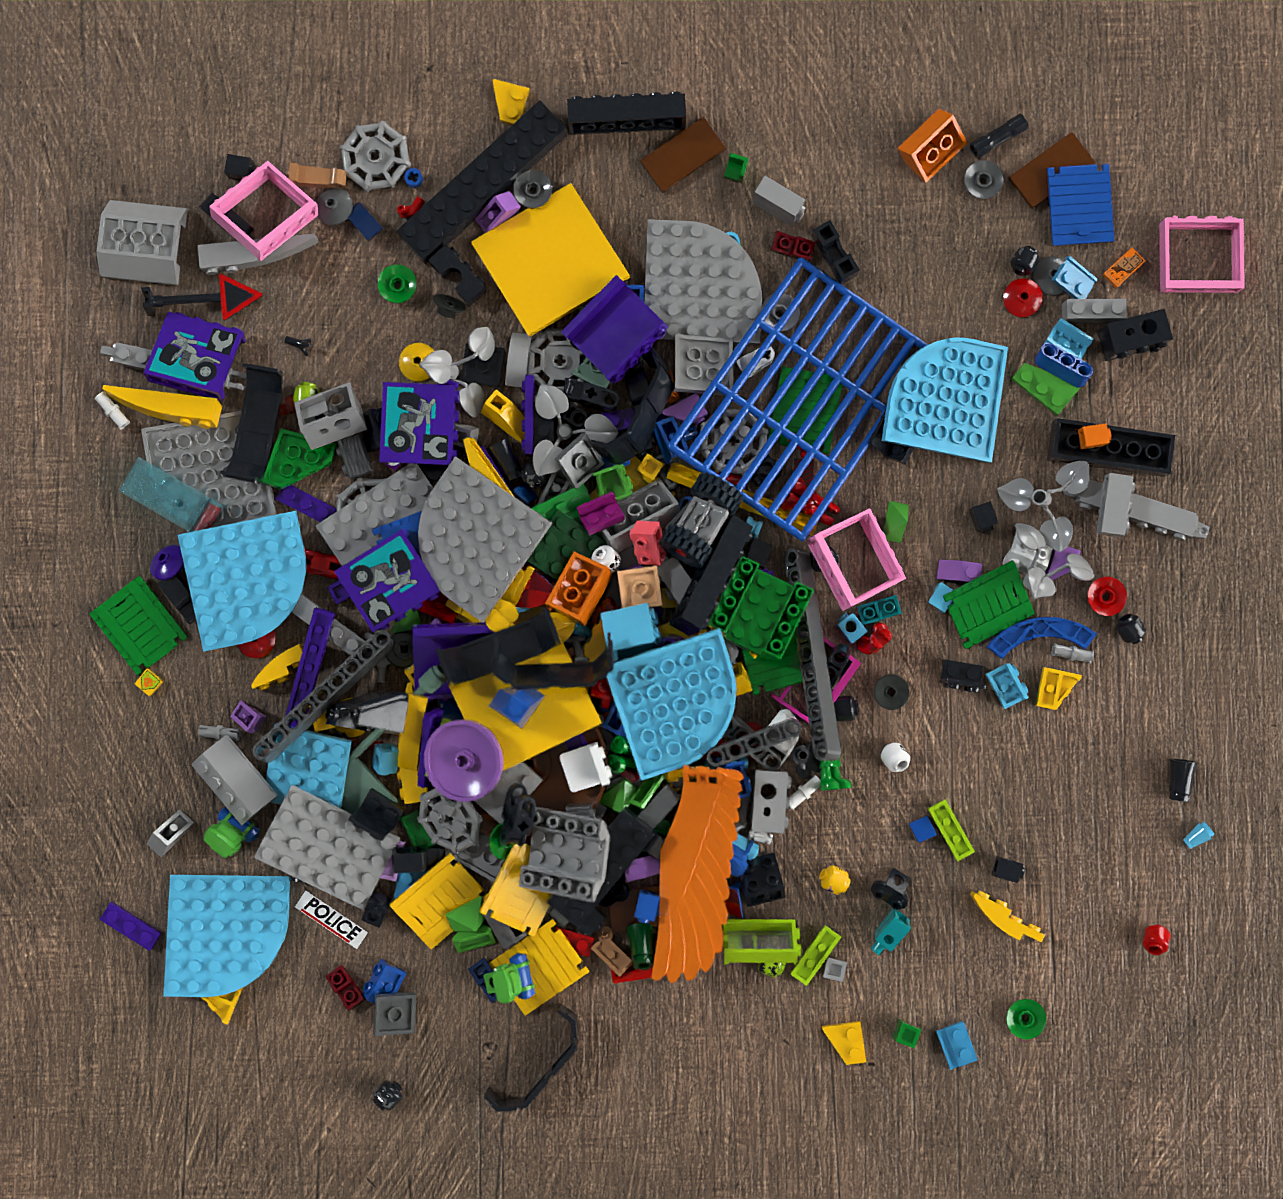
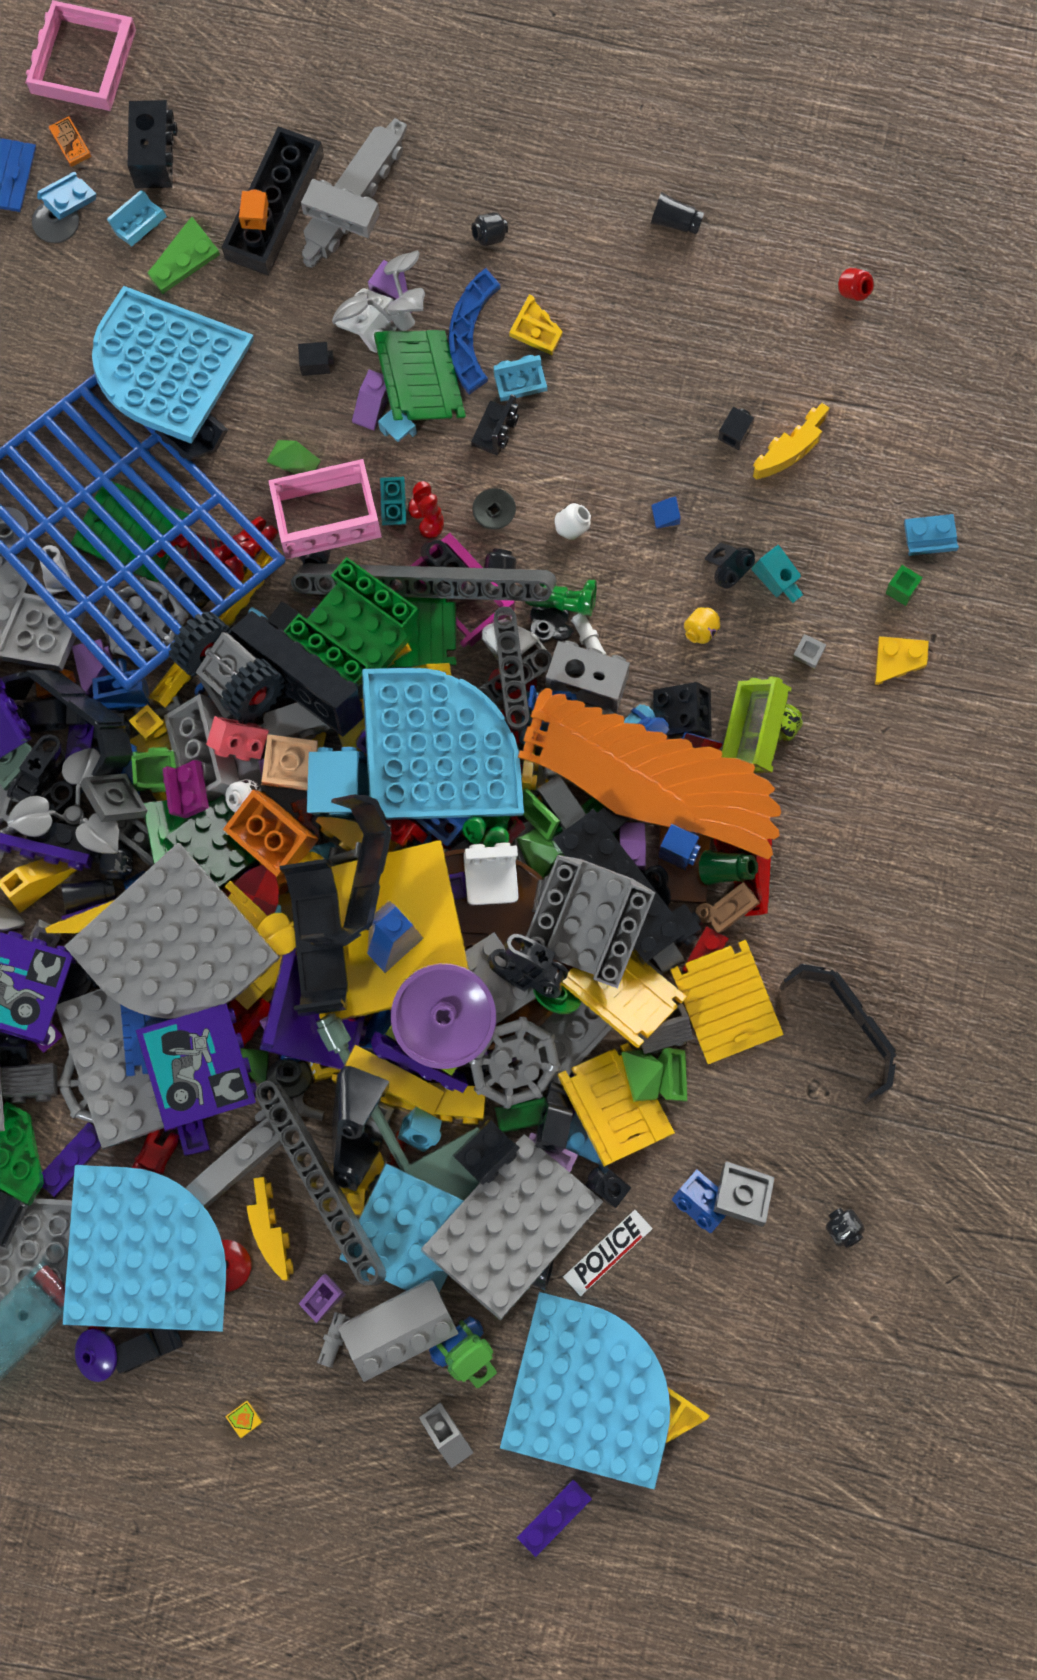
camera: 75 degrees left, 10 degrees down
(139, 625) = (166, 1416): green door -> none
(311, 658) = (271, 1192): dark purple plate -> none
(345, 987) = (698, 1253): dark red slope -> none
(478, 971) = (729, 1070): dark blue slope -> none
(511, 980) = (733, 1031): bright green piece -> none
(760, 836) = (629, 701): white piece -> none
(815, 955) = (787, 668): lime plate -> none
(859, 630) = (408, 527): medium azure brick -> none
(951, 830) = (674, 481): lime plate -> none
(1014, 302) = (75, 267): red dish -> none
(1019, 492) = (297, 313): light grey plant -> none
(1025, 260) = (28, 243): black head -> none
(1033, 1025) = (917, 438): green dish -> none
(1063, 365) = (162, 229): blue beam -> none
(1072, 653) = (501, 299): light grey pin -> none
(1094, 310) = (109, 182): light grey brick -> none
(1116, 596) = (442, 237): red dish -> none
(1199, 835) = (746, 212): medium azure cone -> none

